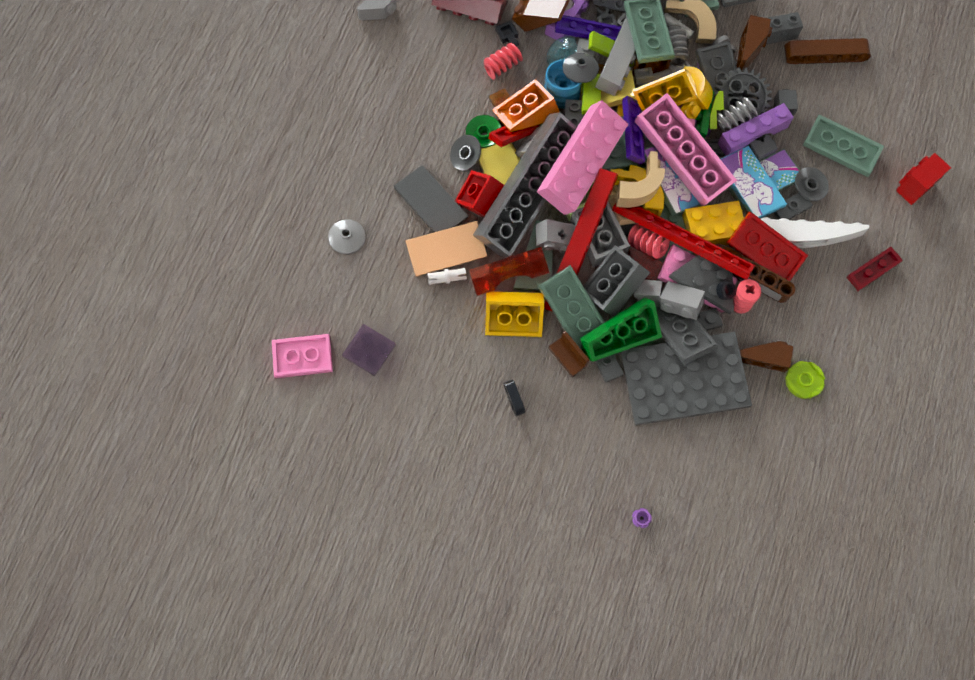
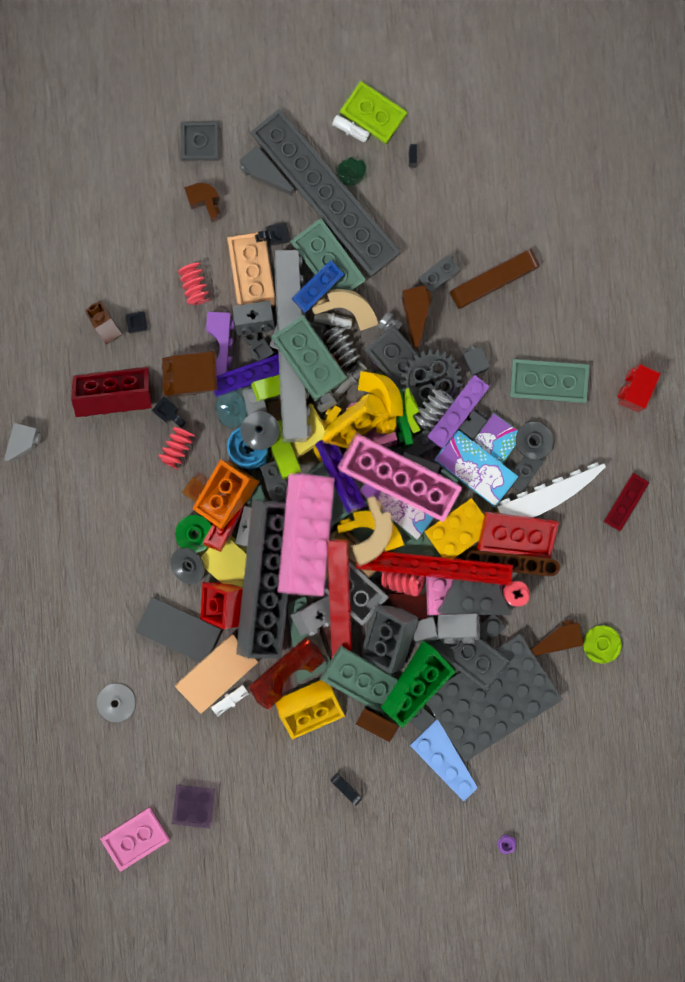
camera: 20 degrees left, 15 degrees up
(615, 412) = (441, 756): none -> light blue wing
(726, 290) = (495, 600): black tile -> none

